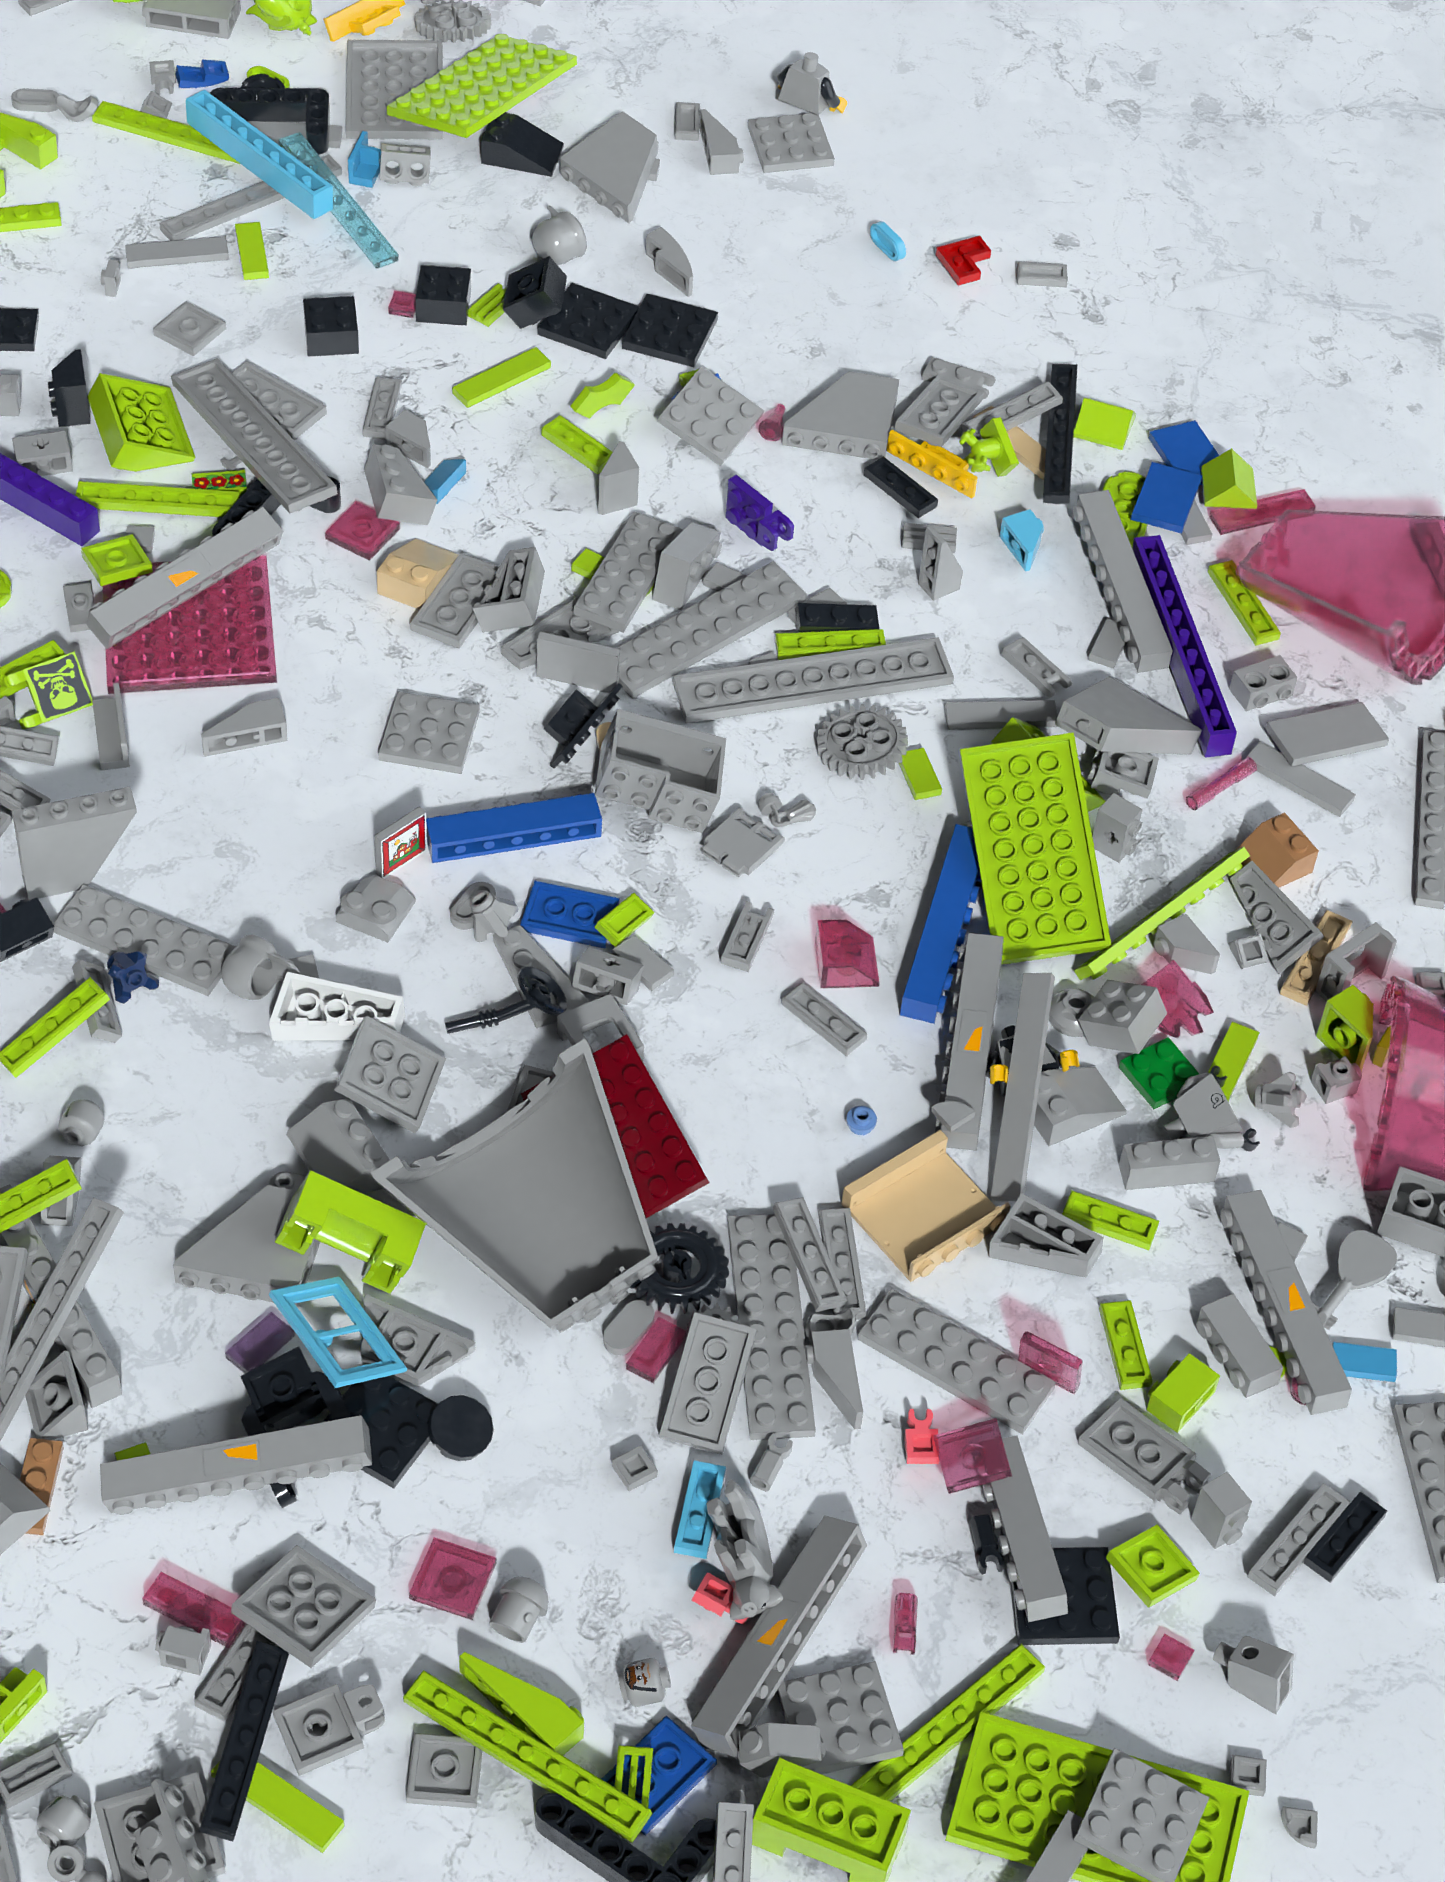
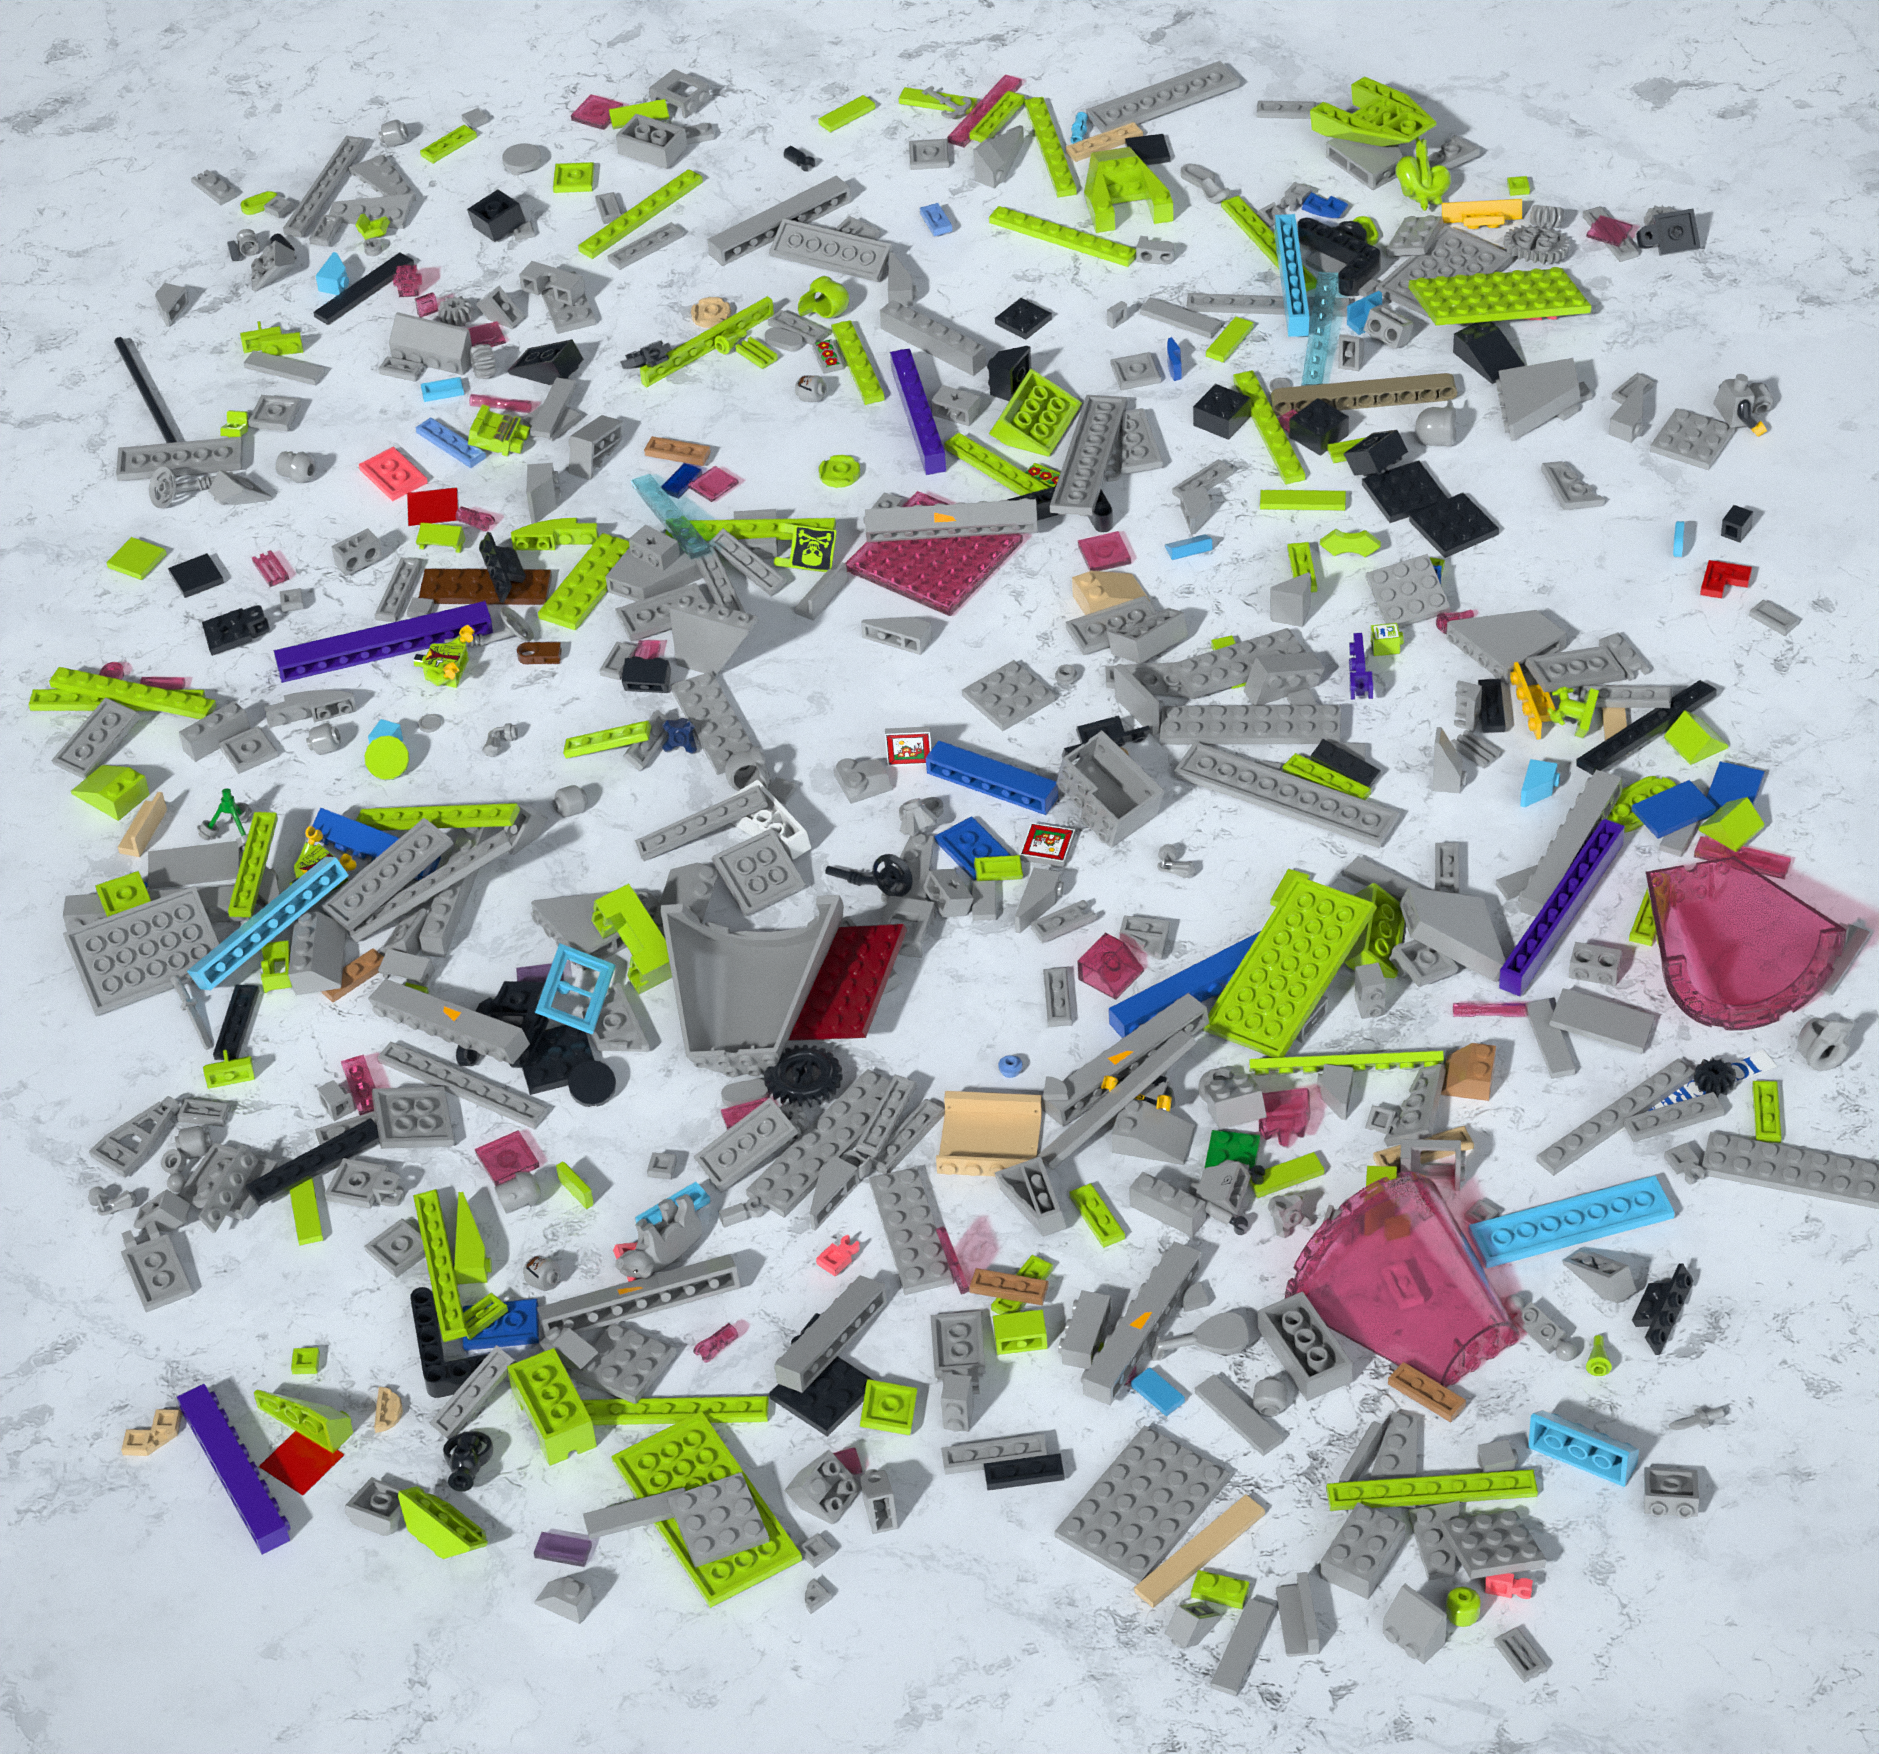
camera: 50 degrees right, 5 degrees down
(78, 196) = (1154, 251): none -> light grey leg
(99, 1434) = (407, 966): none -> light grey hinge
(116, 560) = (927, 490): lime tile -> none
(143, 535) = (961, 487): light grey tile -> none
(217, 296) = (1174, 359): none -> blue slope
(268, 1058) = (701, 823): none -> light grey tile
(307, 1529) = (463, 1085): none -> light grey tile
(329, 63) = (1415, 235): none -> light grey plate
(351, 274) = (1279, 383): none -> light grey piece
(393, 322) = (1270, 428): none -> lime plate
(395, 206) = (1350, 352): none -> light grey slope
(397, 488) = (1146, 533): light grey wedge -> none
(448, 242) = (1367, 393): none -> dark tan beam
(466, 678) = (1066, 674): none -> light grey plate
(567, 1556) = (575, 1185): none -> lime tile
(641, 866) = (1047, 844): none -> tile
(670, 260) = (1504, 477): light grey slope -> none
(693, 917) = (1038, 897): none -> light grey slope
(738, 465) = (1386, 639): none -> lime brick
(739, 845) = (1122, 866): light grey plate -> none
(744, 245) = (1568, 488): none -> light grey wing
(841, 900) = (1145, 934): none -> light grey wing
(862, 742) = (1271, 848): light grey gear -> none
(891, 497) = (1468, 705): none -> light grey hinge
(921, 201) = (1737, 523): none -> black brick
(972, 1456) = (845, 1276): clear pink tile -> none
(1123, 1352) = (1009, 1286): none -> medium nougat tile
(1189, 1702) = (824, 1488): none -> light grey slope

